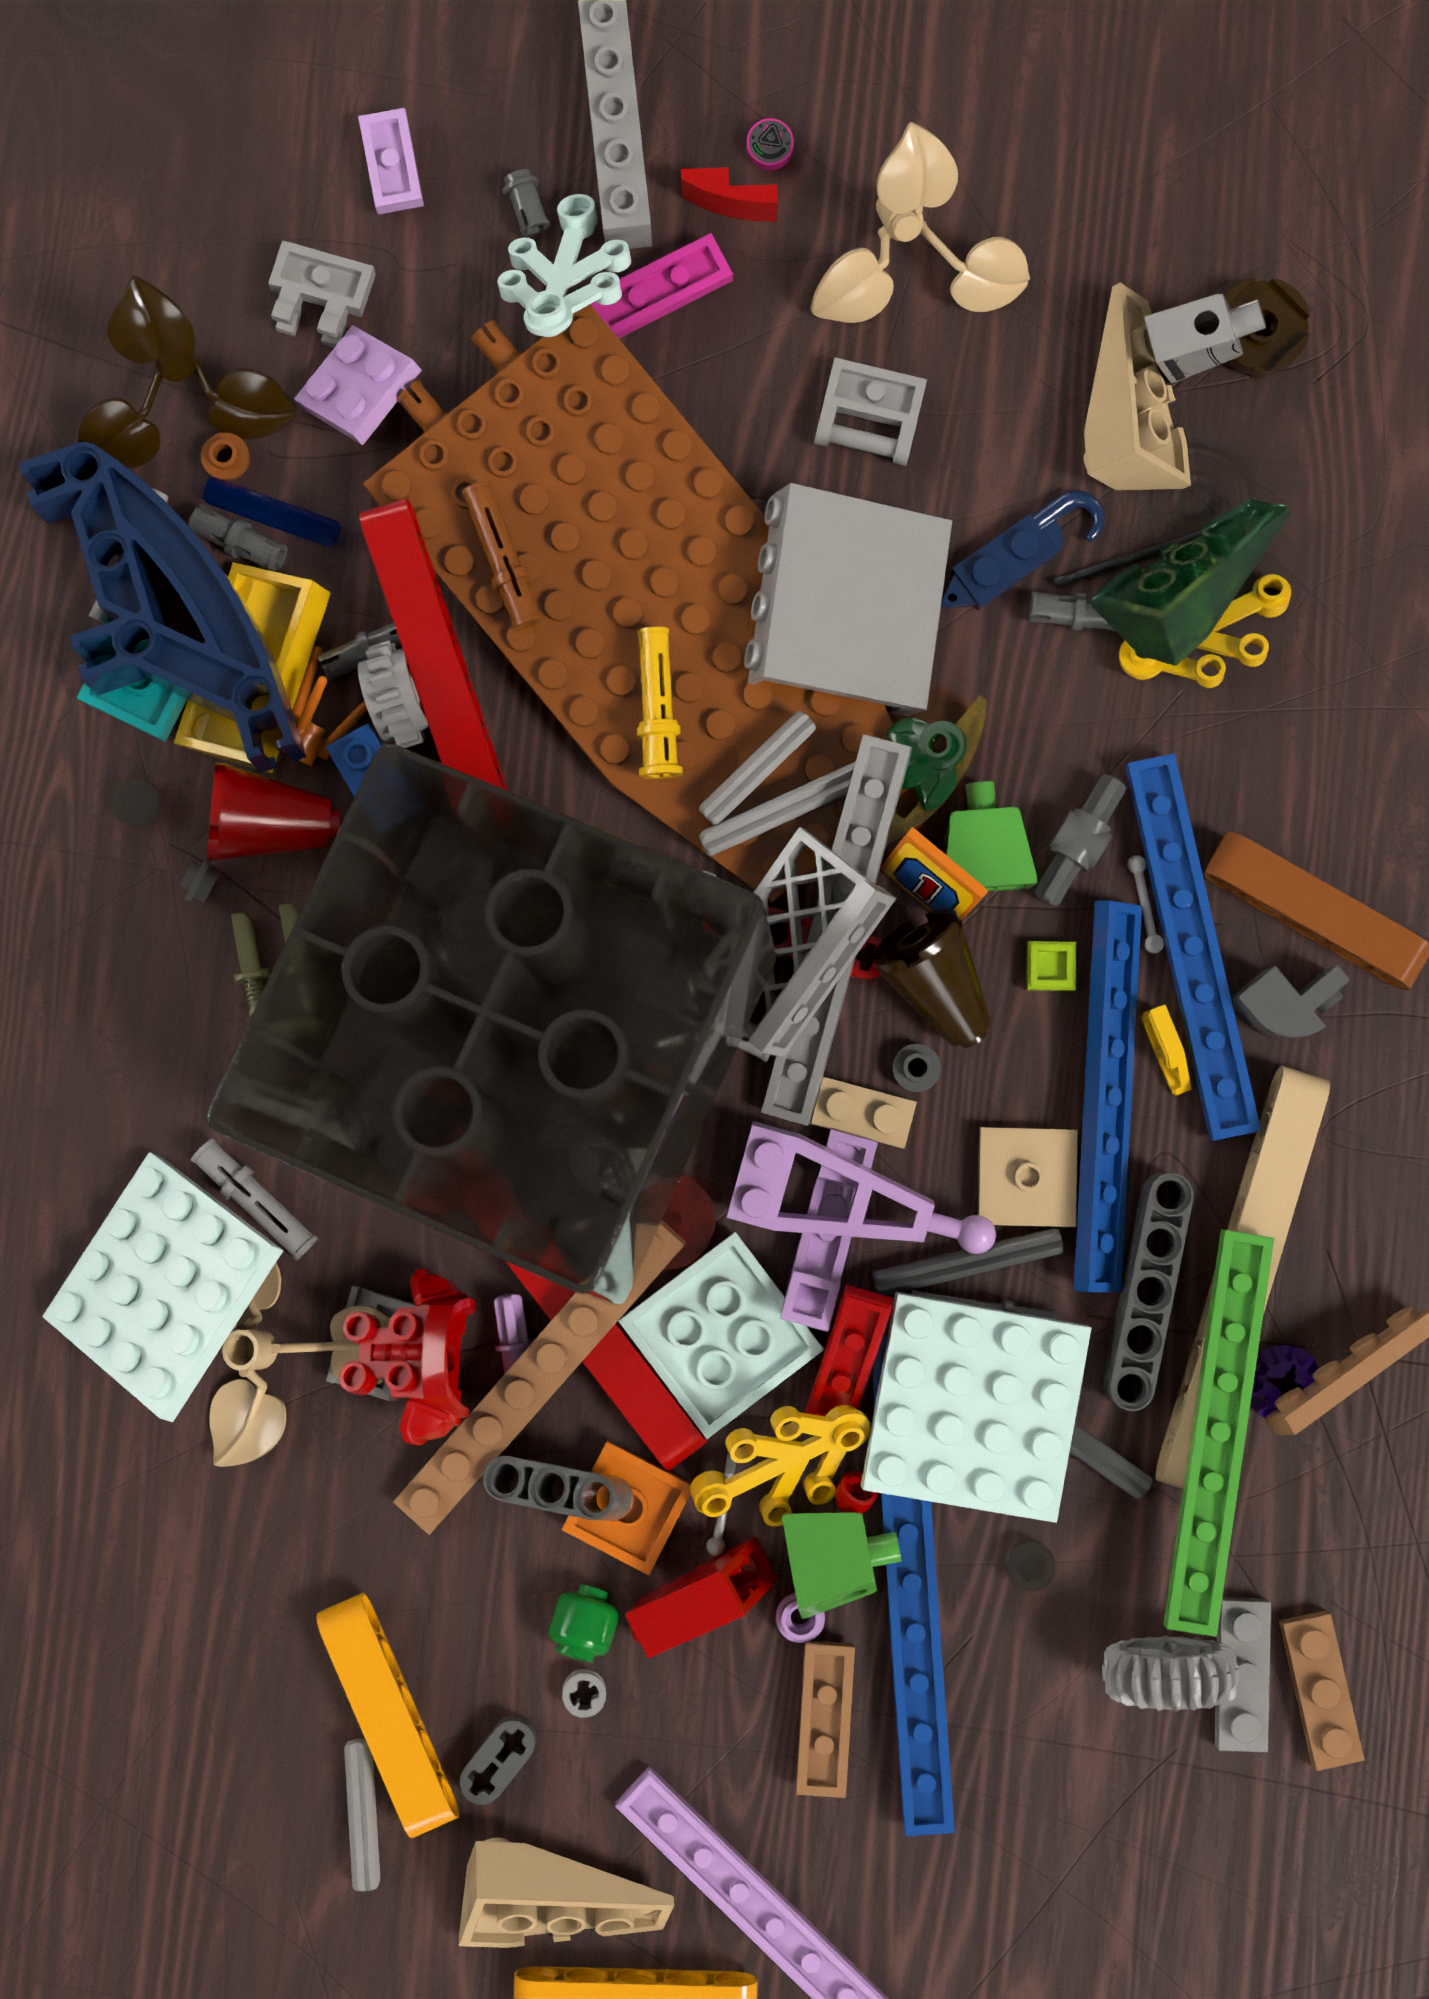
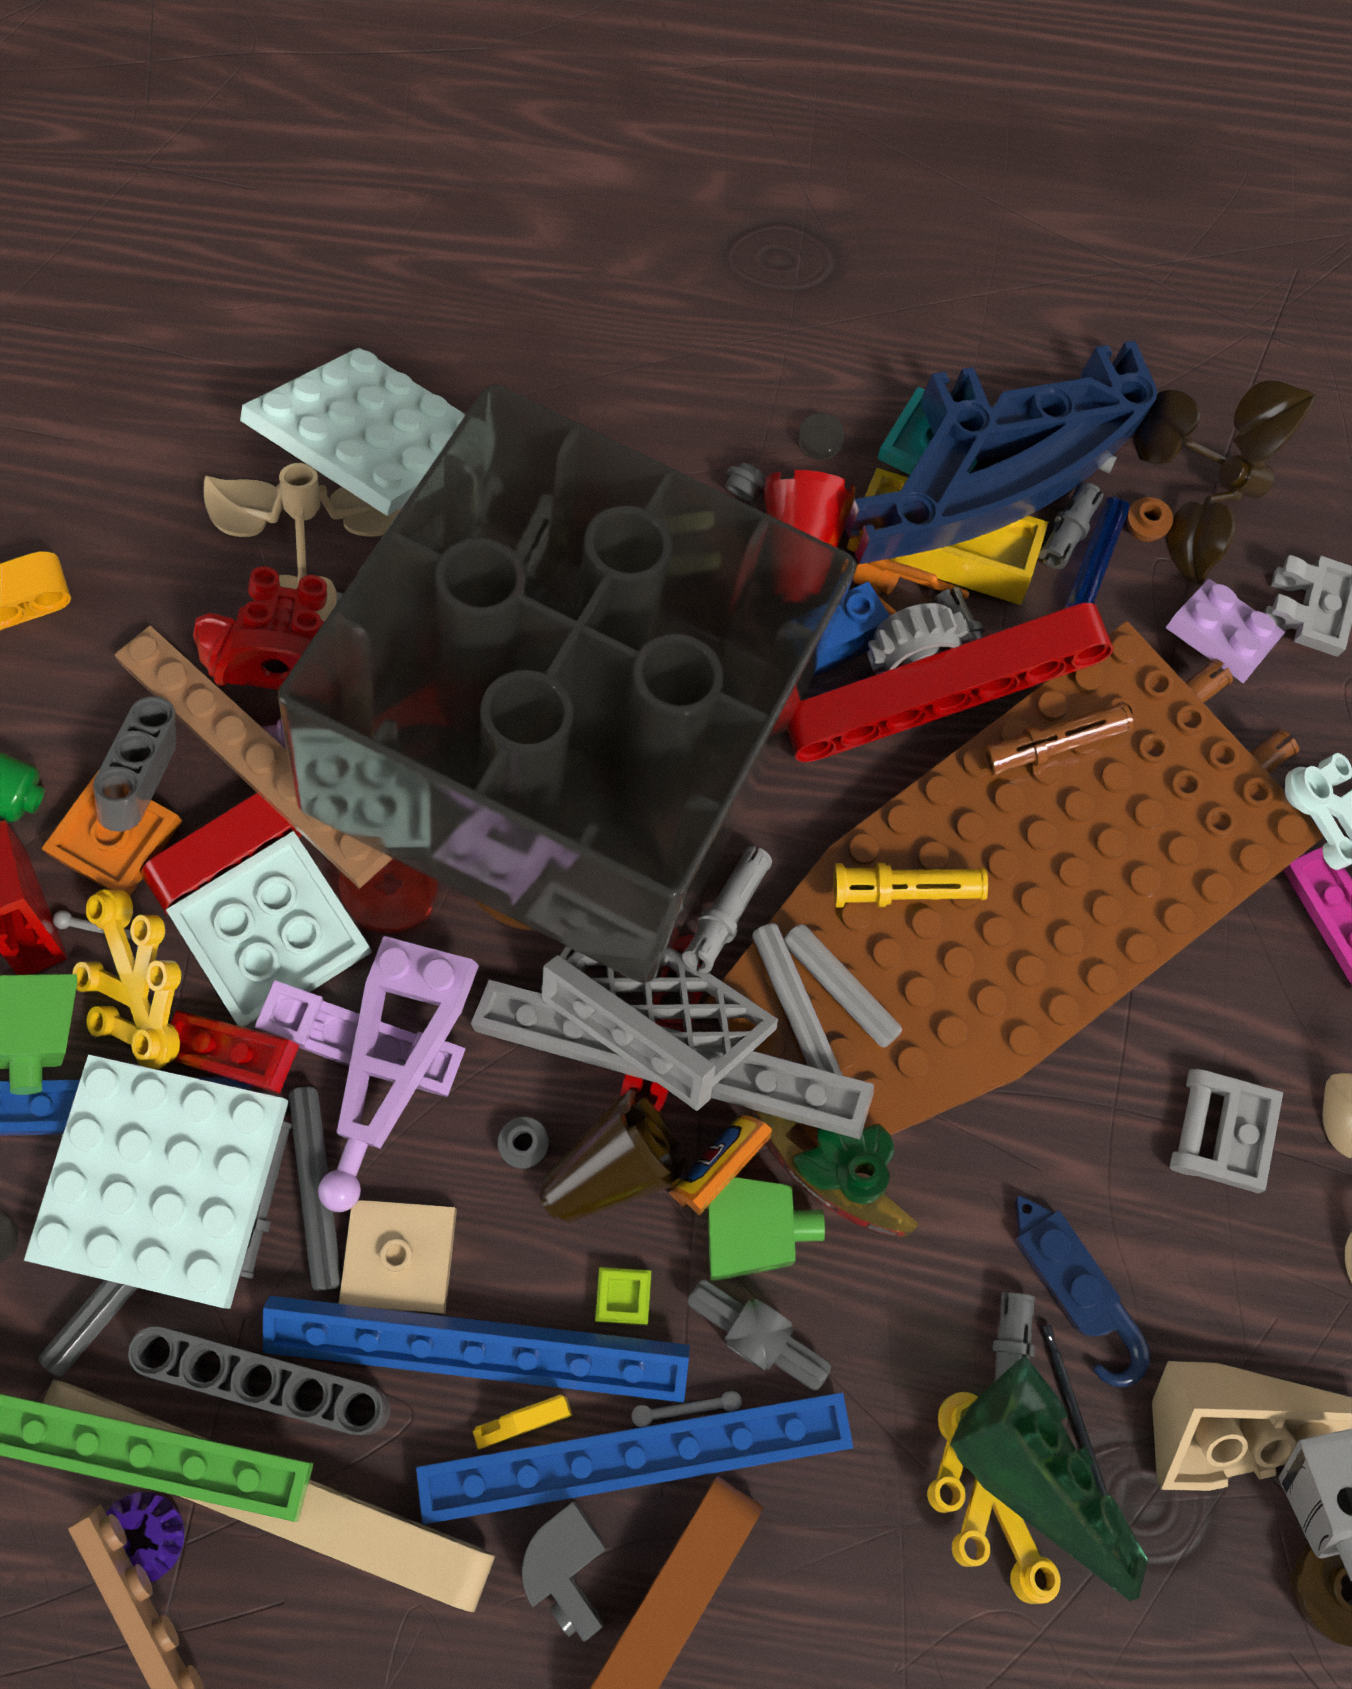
camera: 95 degrees right, 15 degrees down
(848, 598) = (1022, 1089): light grey panel -> none
(851, 1496) = (96, 1047): red hinge -> none
(863, 1112) = (481, 1086): tan plate -> none

